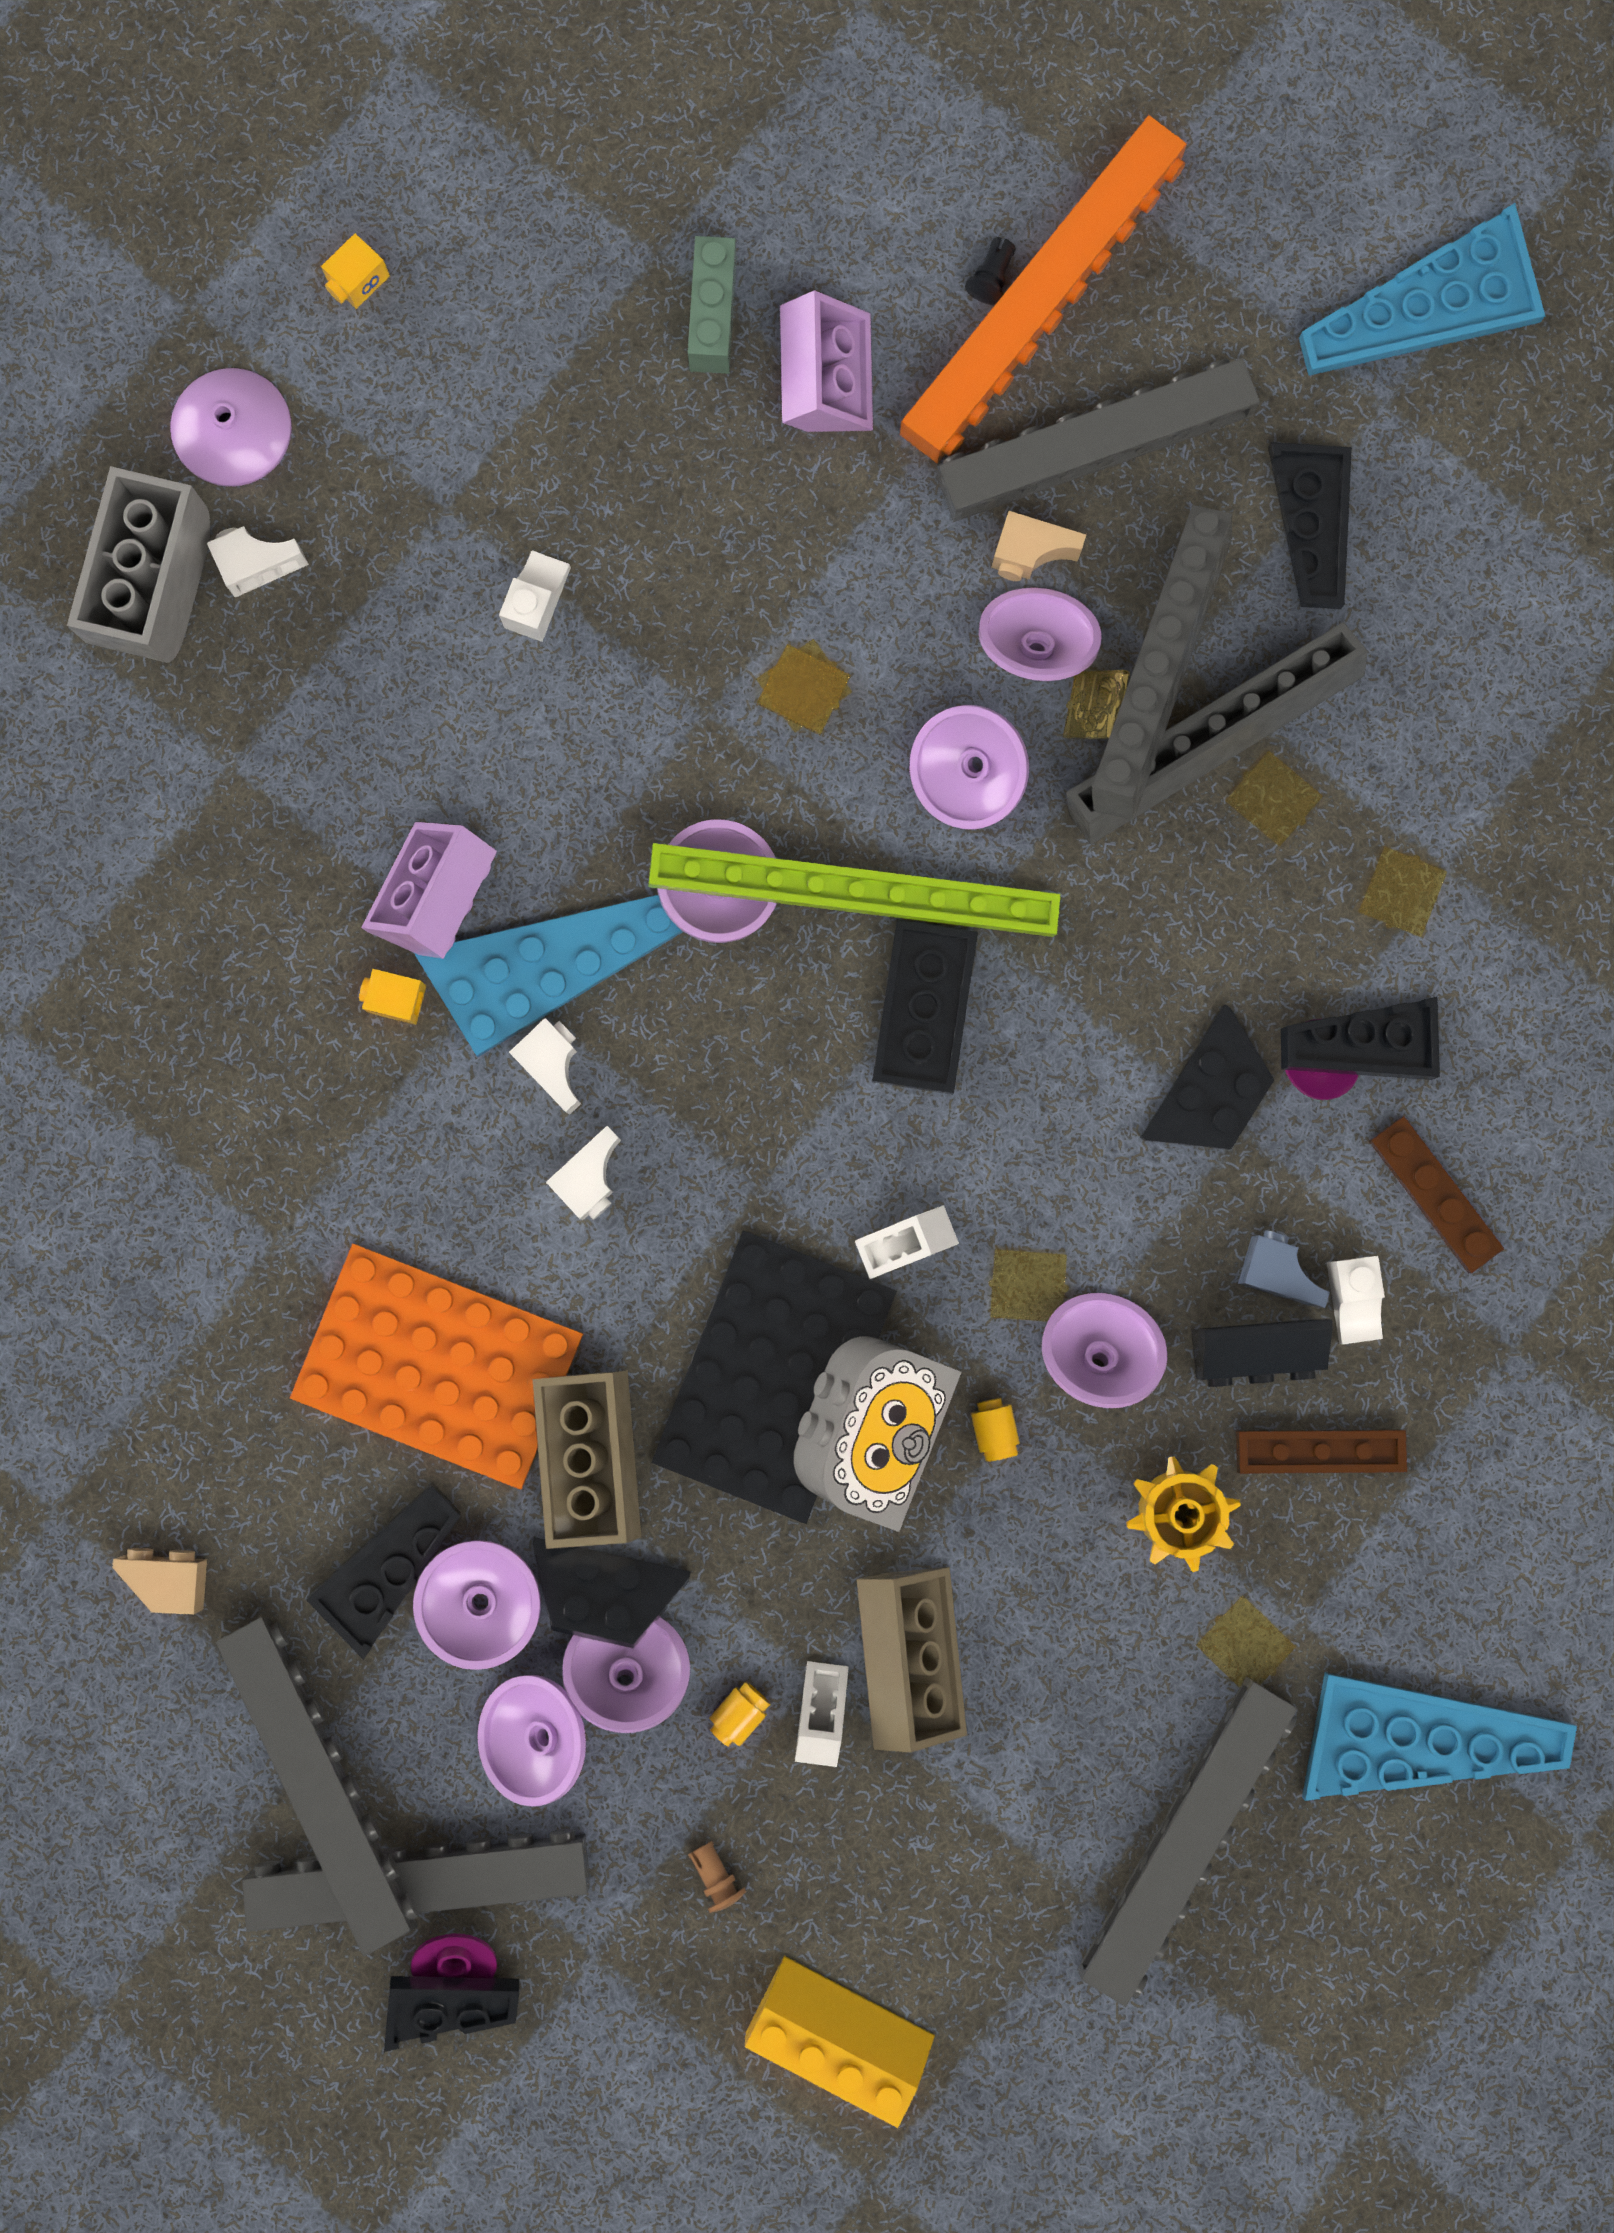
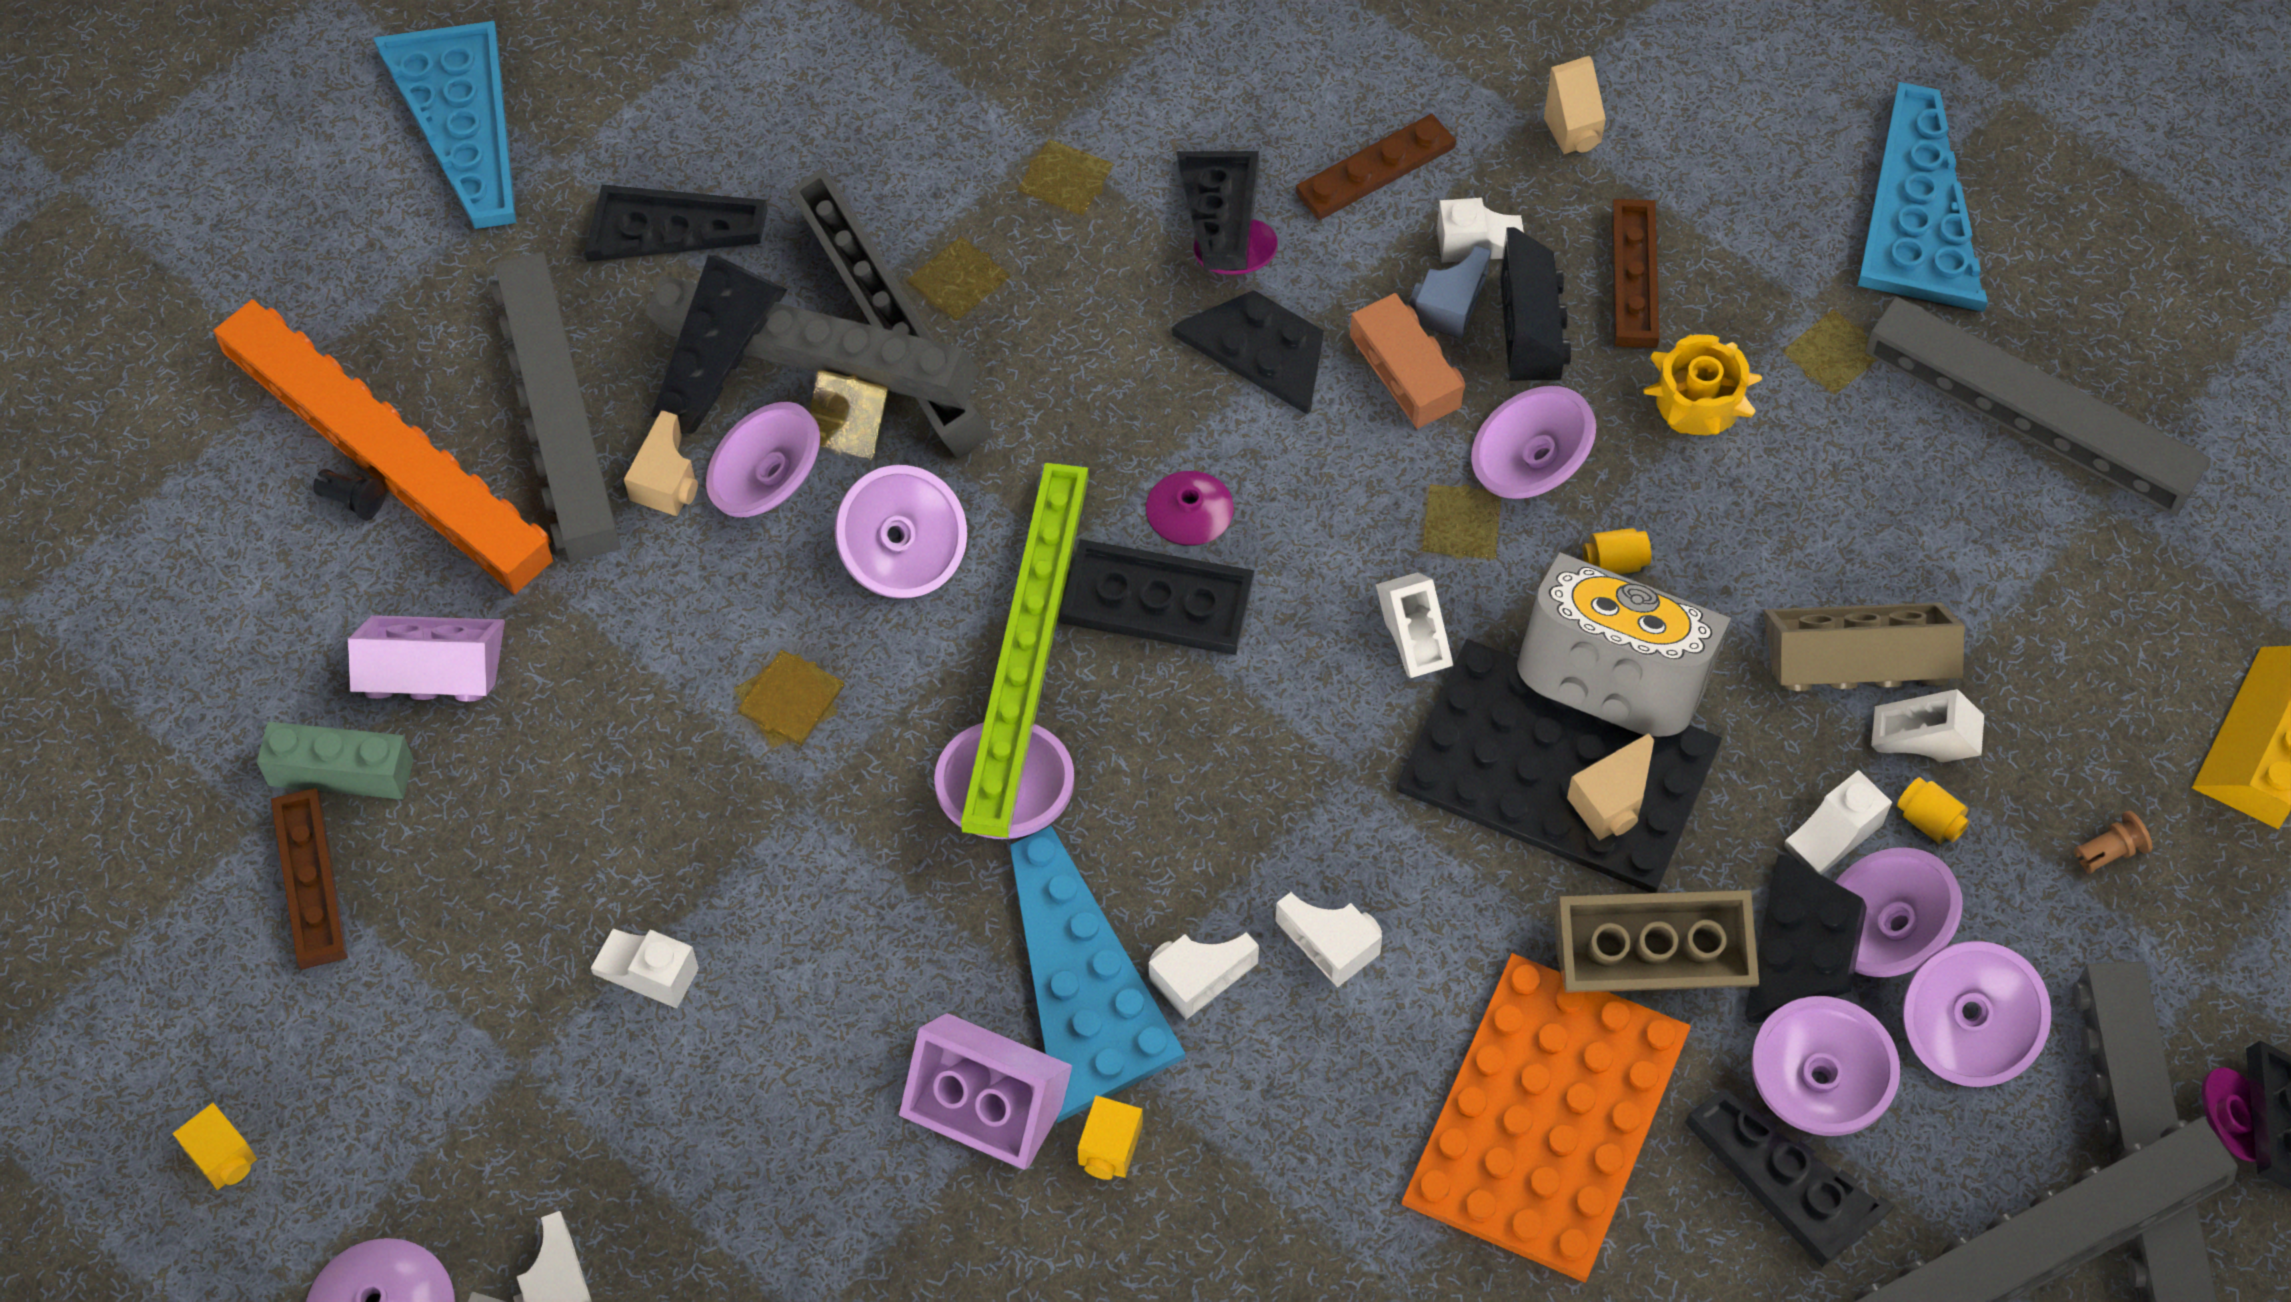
camera: 85 degrees left, 25 degrees down
(604, 303) = (309, 878): none -> reddish brown plate
(718, 1626) = (1839, 824): none -> white arch
(731, 1425) = (1613, 789): none -> tan slope
(1017, 1050) = (1186, 522): none -> magenta dish
(1158, 570) = (719, 325): none -> black wing
(1200, 1230) = (1407, 360): none -> nougat brick
(1510, 1392) = (1575, 106): none -> tan slope

